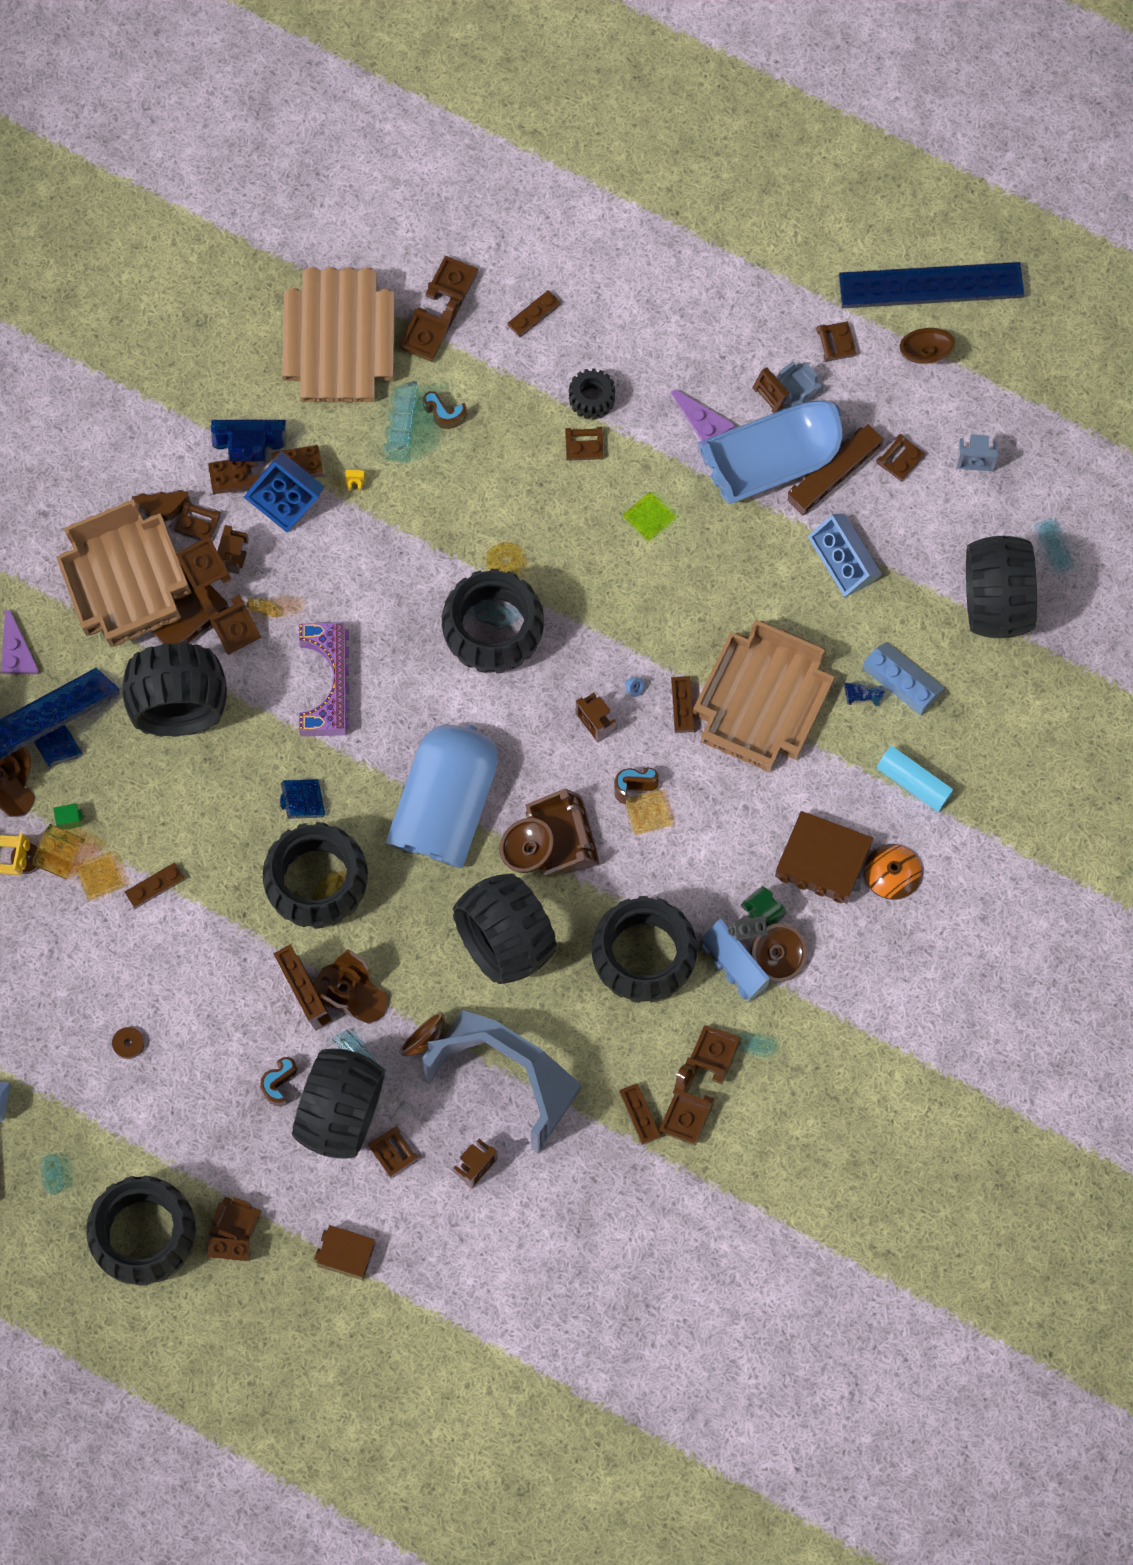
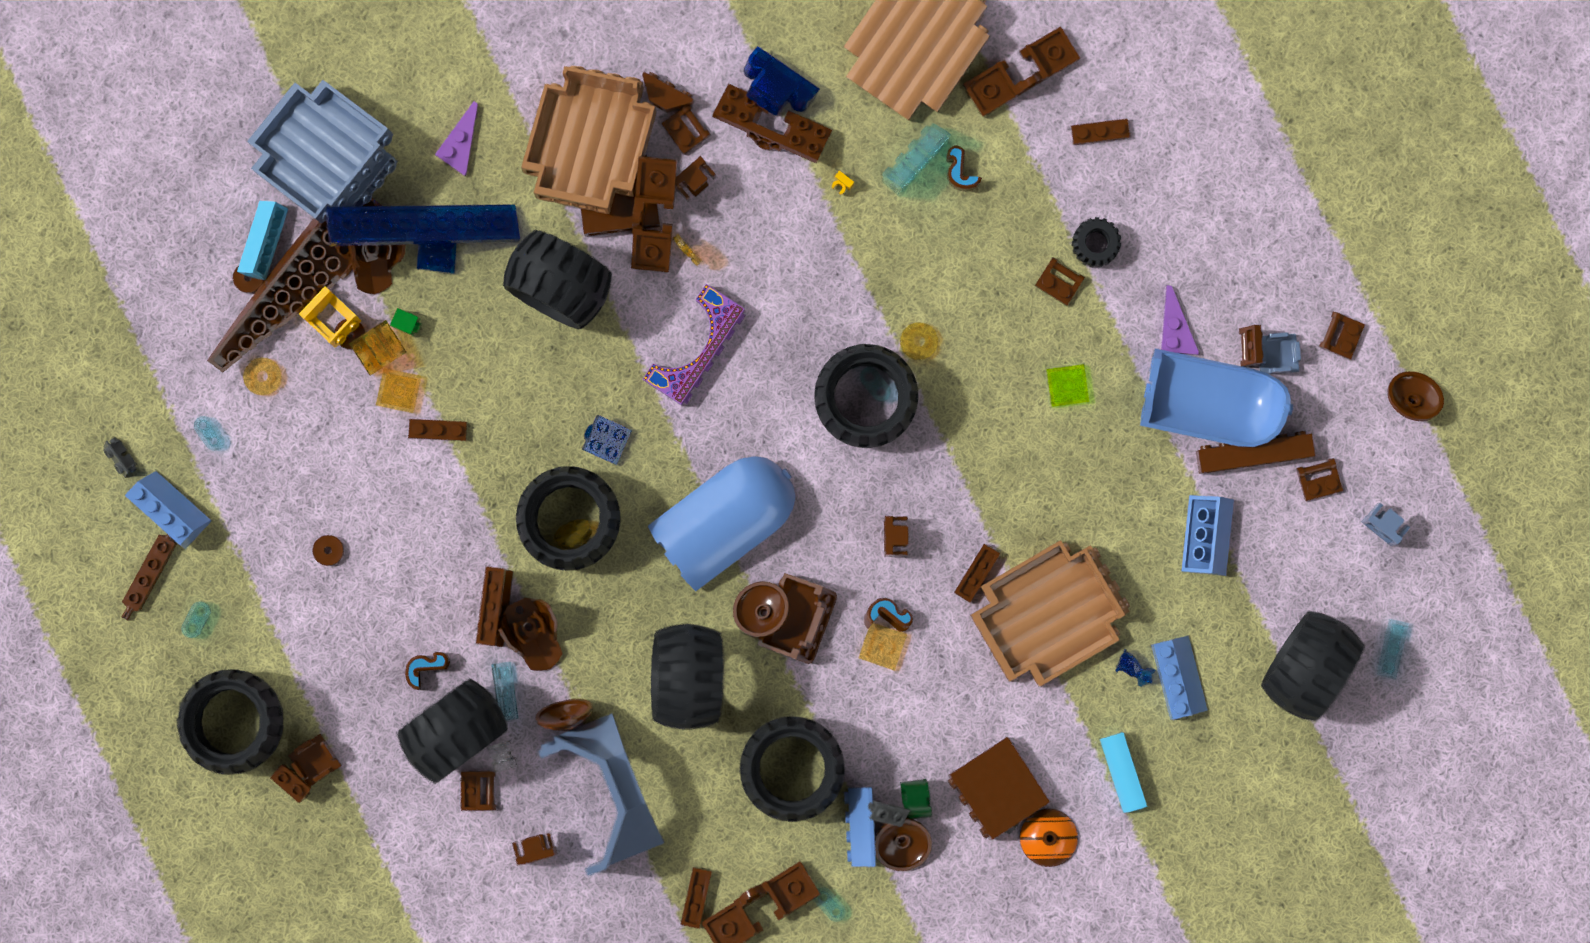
camera: 35 degrees right, 15 degrees up
(284, 492) = (772, 157): blue slope -> none
(345, 1252) = (383, 847): reddish brown brick -> none
(634, 686) = (948, 529): medium blue tile -> none
(931, 285) = (1461, 340): clear blue plate -> none

